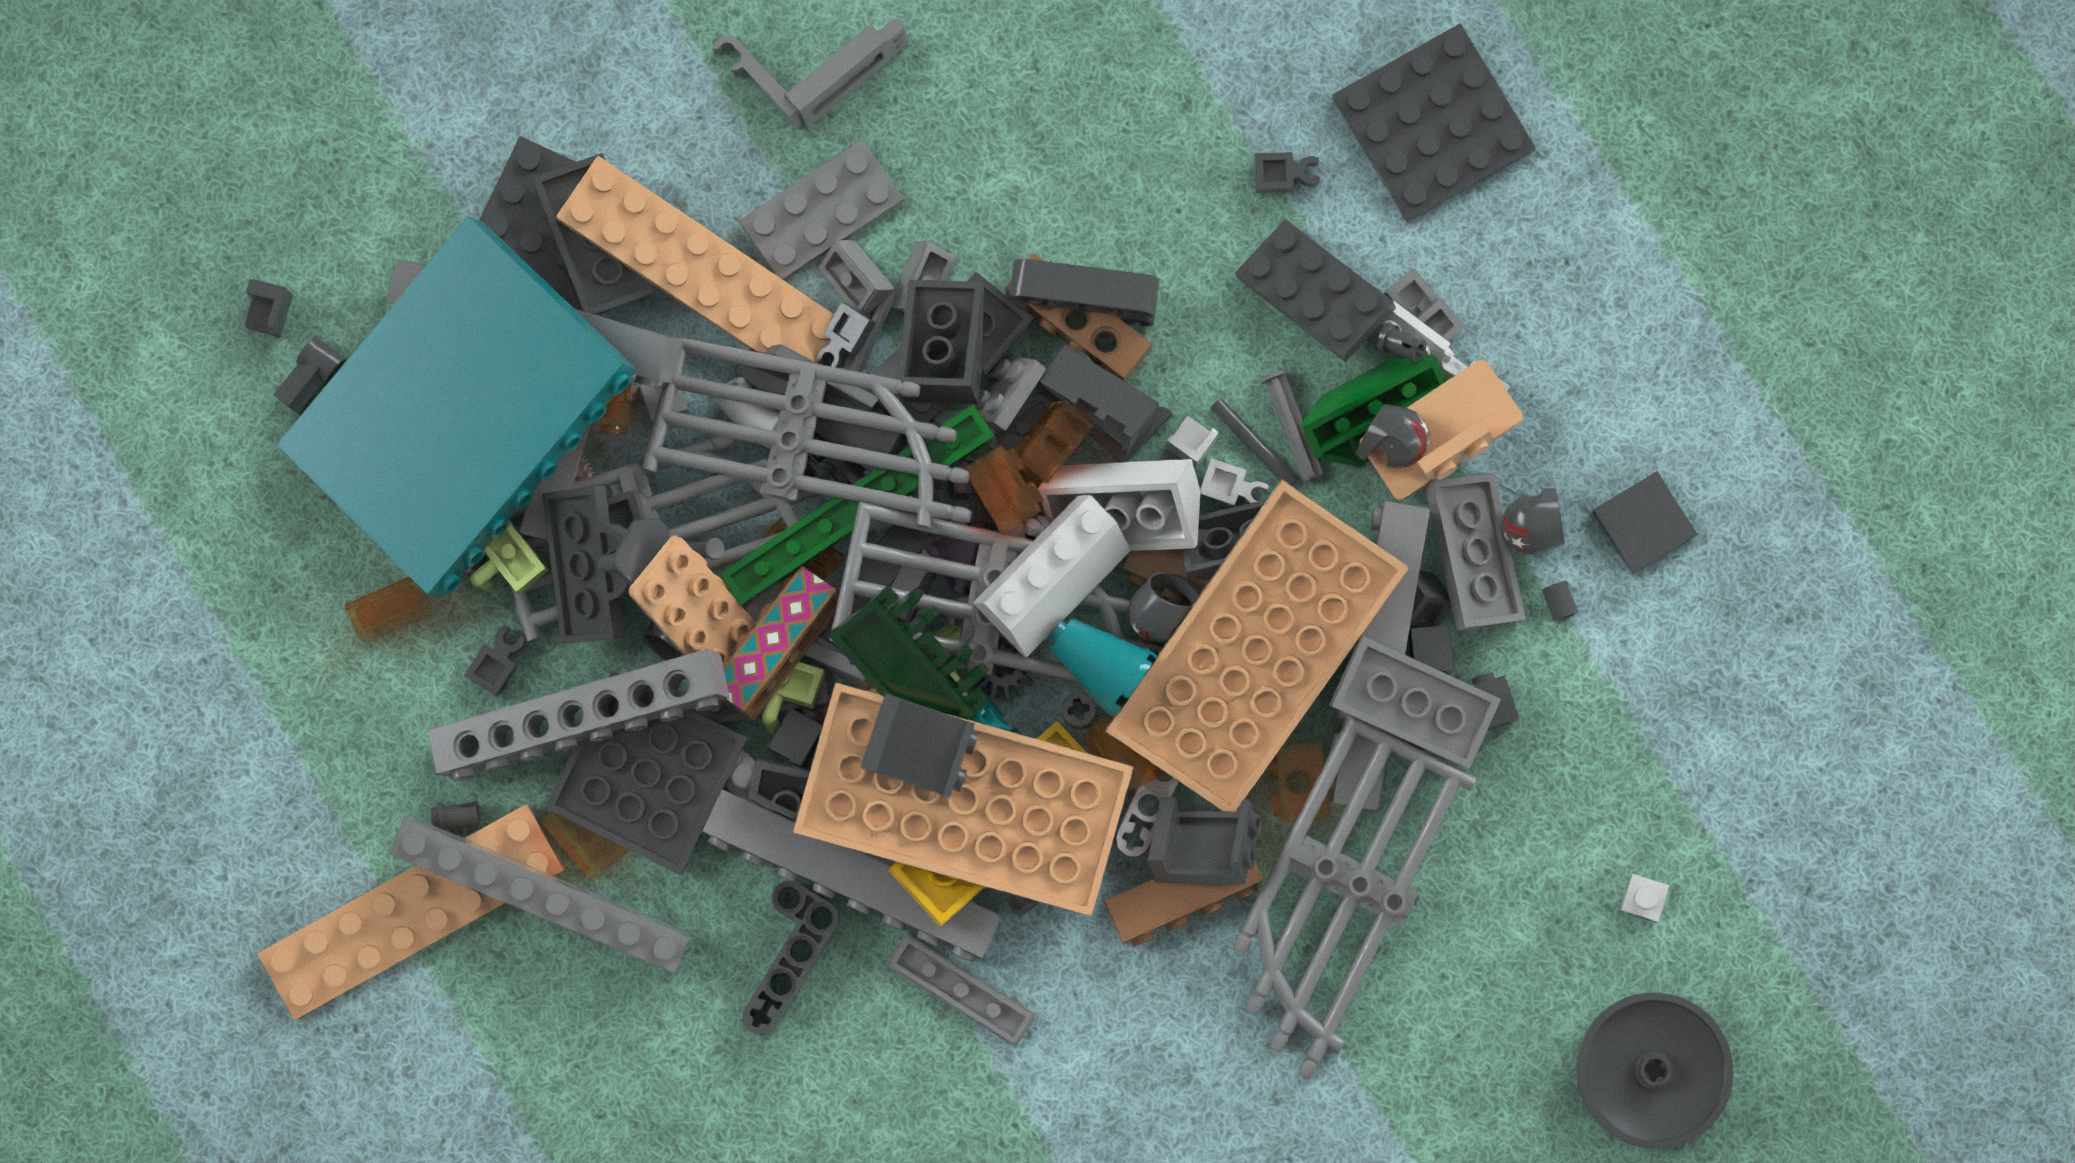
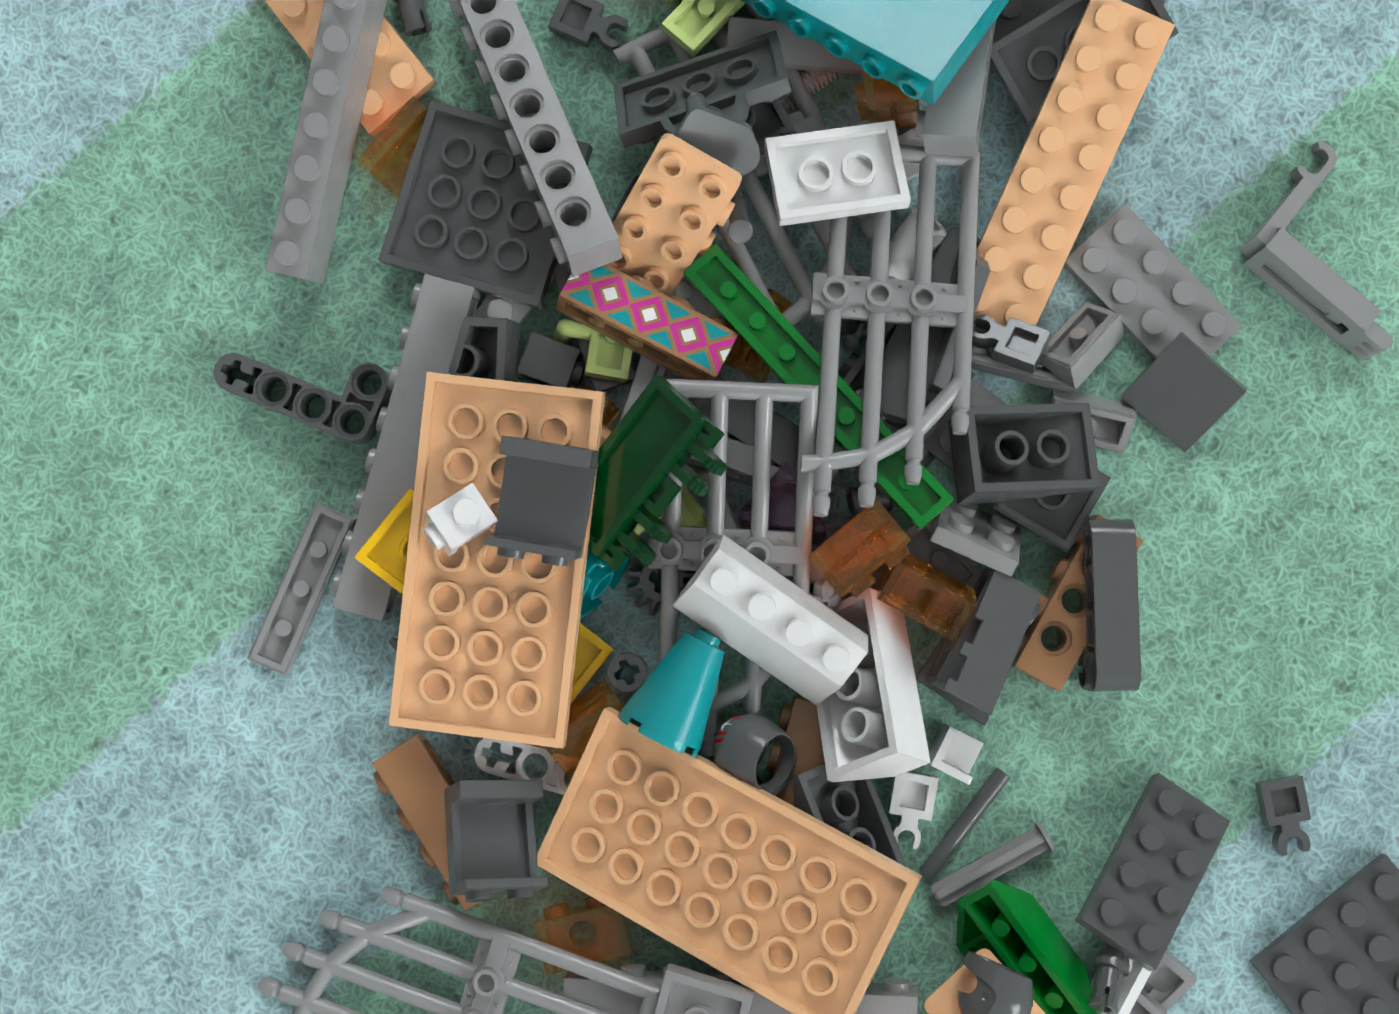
camera: 80 degrees right, 5 degrees up
(677, 459) = (836, 173): none -> white plate
(911, 198) = (1183, 392): none -> dark grey tile
(925, 821) = (458, 520): none -> white bracket

